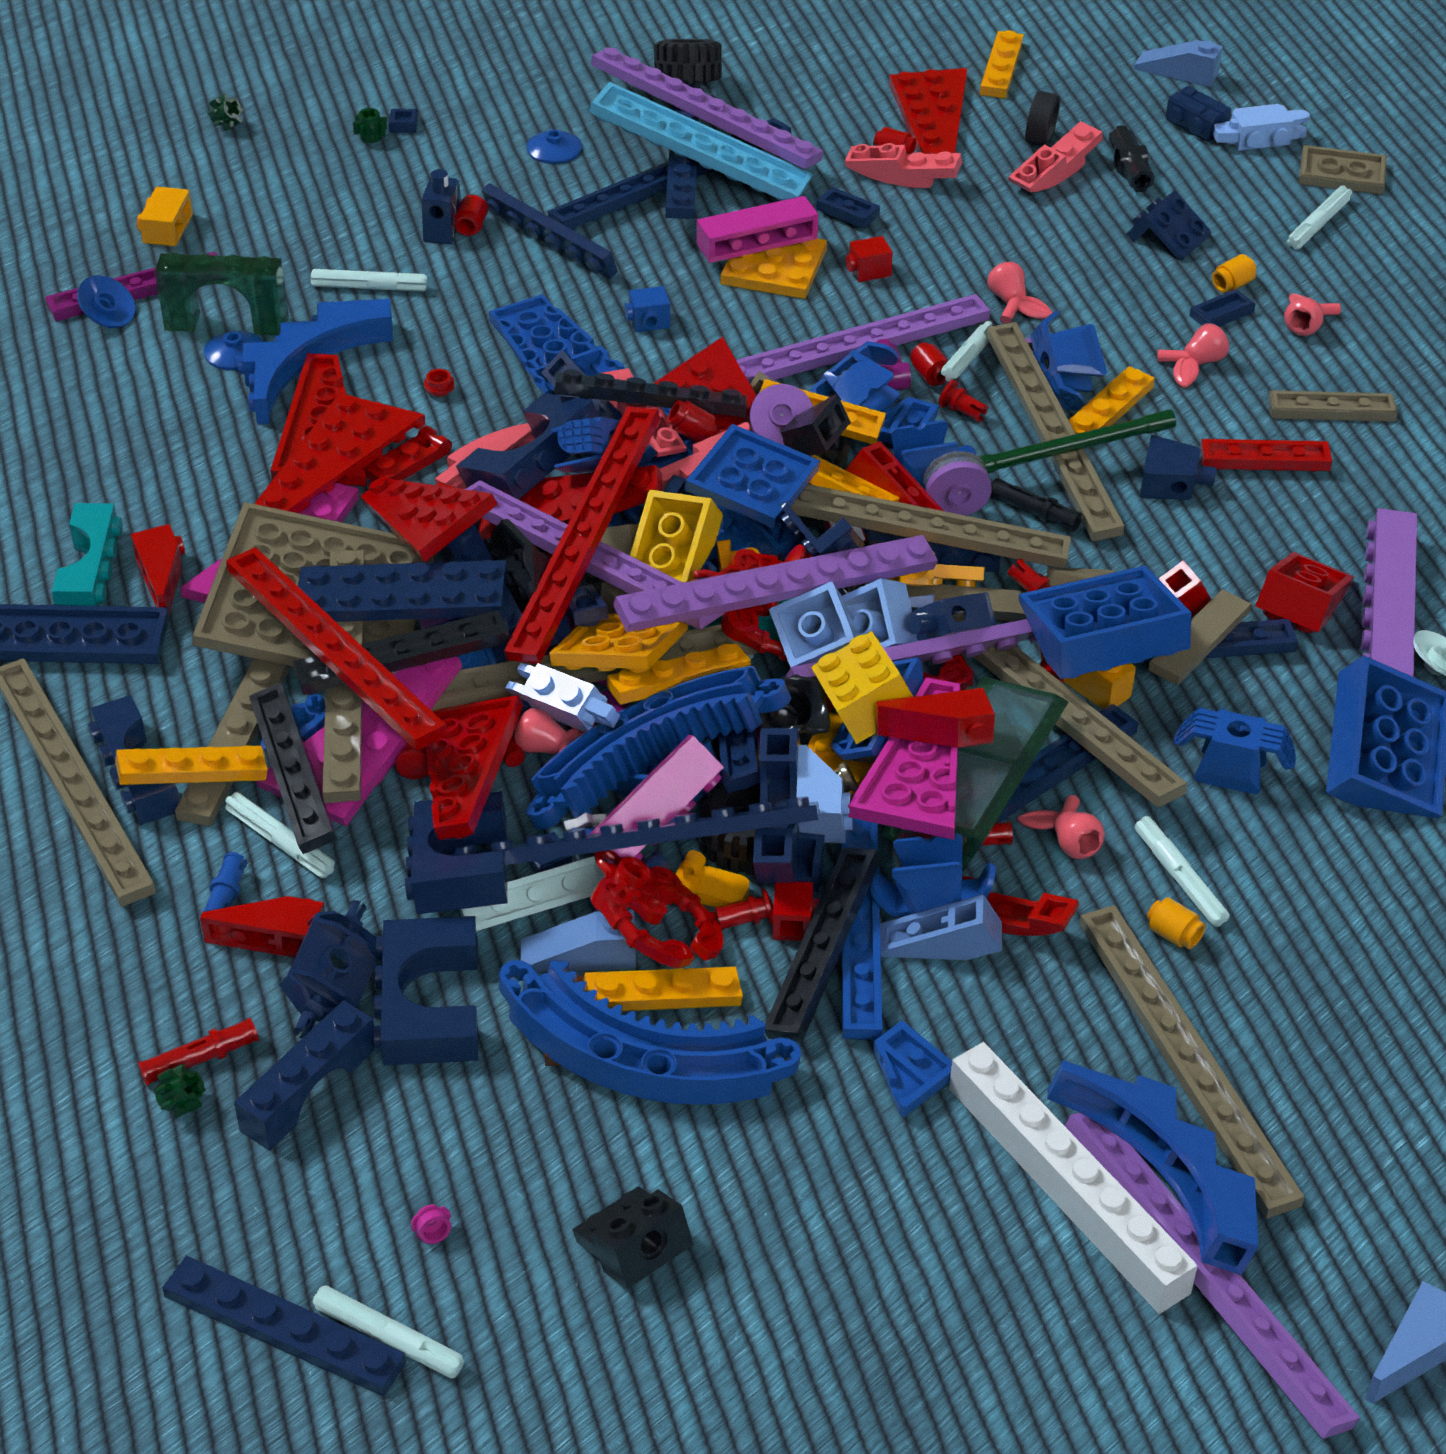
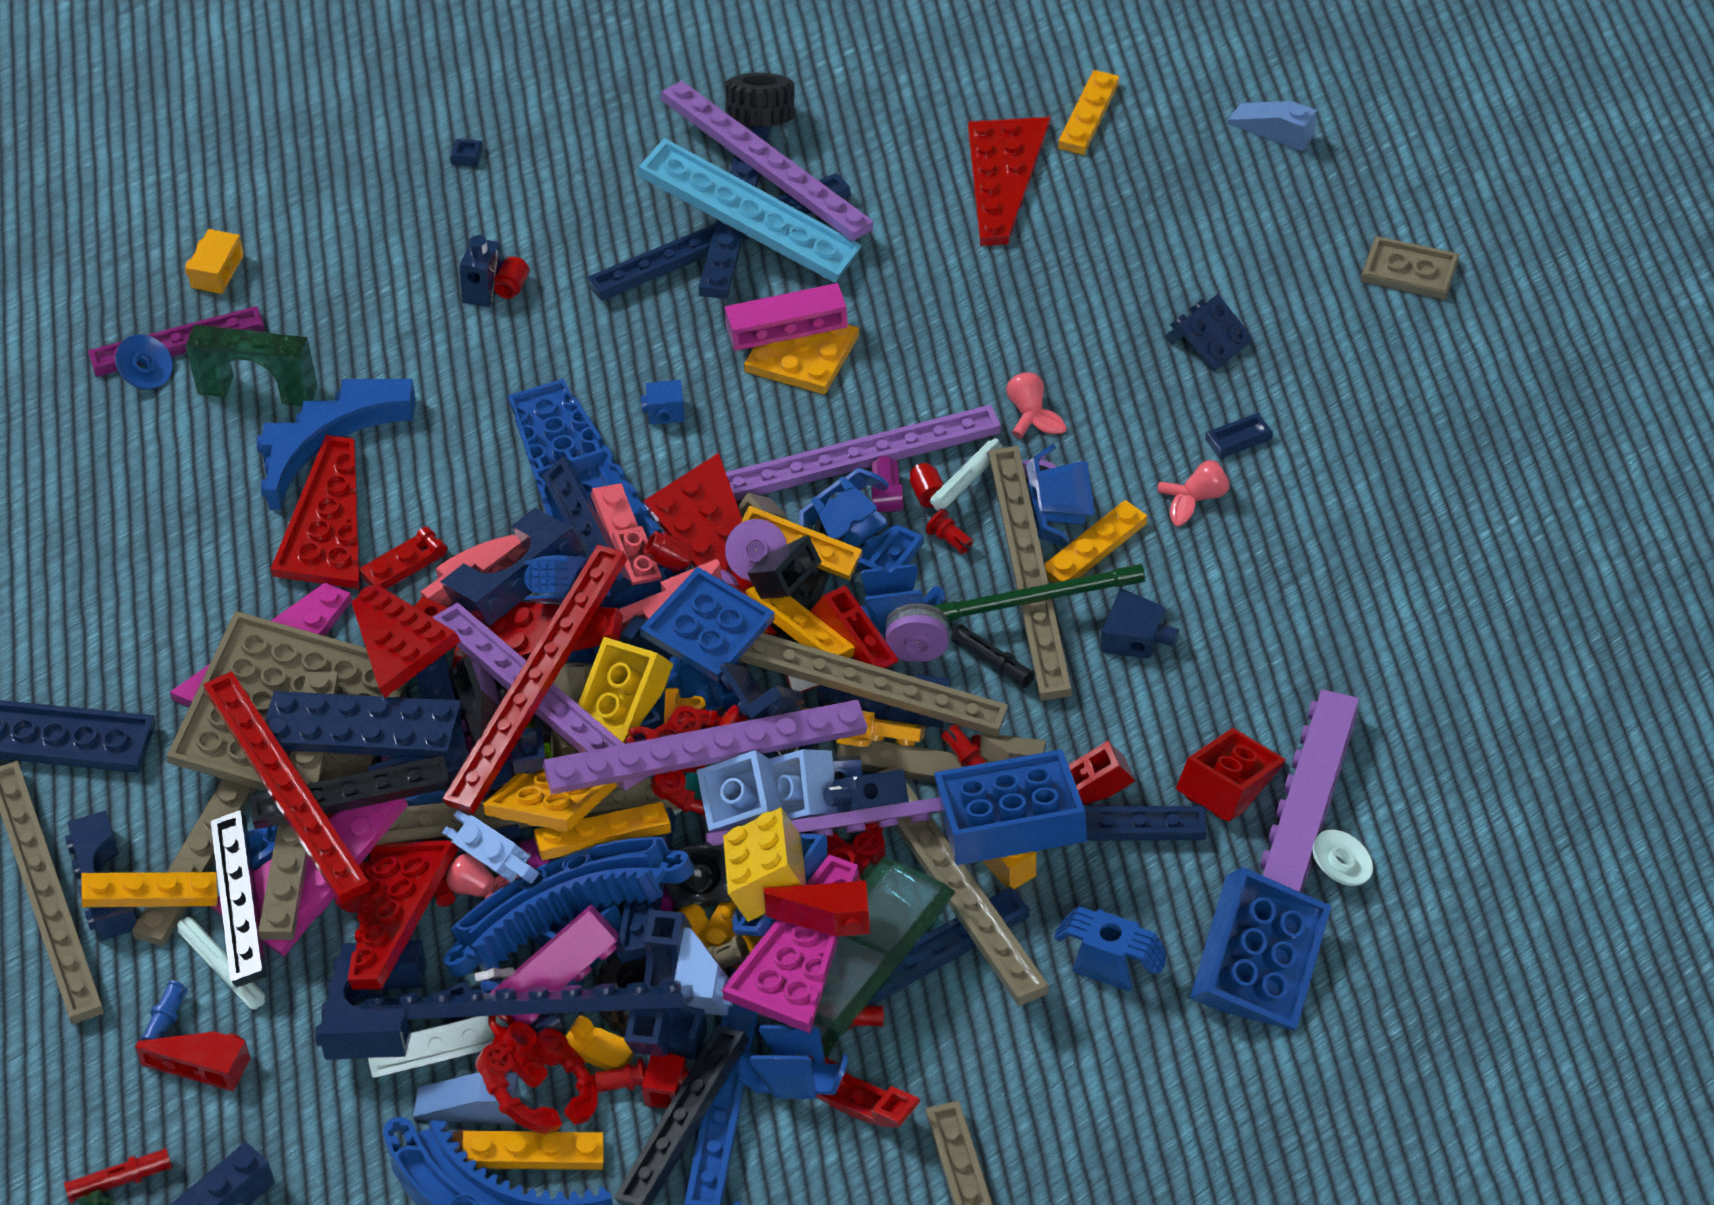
camera: 10 degrees right, 5 degrees up
(94, 532) = (99, 626): teal arch -> none
(160, 562) = (154, 665): red slope -> none
(224, 348) = (250, 419): blue dish -> none
(225, 111) = (290, 135): dark green gear -> none
(314, 982) = (223, 1119): dark blue plate -> none
(337, 447) = (333, 551): red wing -> none
(369, 280) = (400, 348): light aqua axle -> none
(370, 125) = (430, 159): dark green gear -> none
(414, 1031) = (311, 1094): dark blue arch -> none
(439, 382) = (447, 475): red plate -> none
(550, 231) = (589, 307): dark blue plate -> none
(554, 147) = (611, 192): blue dish -> none
(637, 391) = (631, 518): black plate -> none
(848, 207) = (888, 288): dark blue plate -> none
(869, 259) = (894, 354): red brick -> none
(894, 166) = (949, 241): coral slope -> none
(896, 137) = (952, 211): red brick -> none
(945, 932) = (798, 1115): medium blue slope -> none
(1042, 118) = (1107, 192): black tyre -> none
(1055, 164) = (1110, 247): coral slope -> none
(1077, 832) = (944, 1023): coral piece -> none
(1131, 158) = (1191, 243): black piece -> none
(1175, 923) = (1012, 1123): light orange brick -> none
(1181, 871) = (1033, 1068): light aqua axle -> none
(1196, 112) = (1274, 190): dark blue brick -> none
(1207, 631) = (1114, 819): dark tan tile -> none
(1234, 273) = (1260, 394): light orange brick -> none
(1262, 127) = (1337, 211): light blue hinge -> none
(1266, 454) = (1234, 614): red plate -> none
(1306, 315) = (1317, 450): coral piece -> none
(1319, 217) = (1368, 328): light aqua axle -> none
(1332, 405) = (1319, 559): dark tan tile -> none

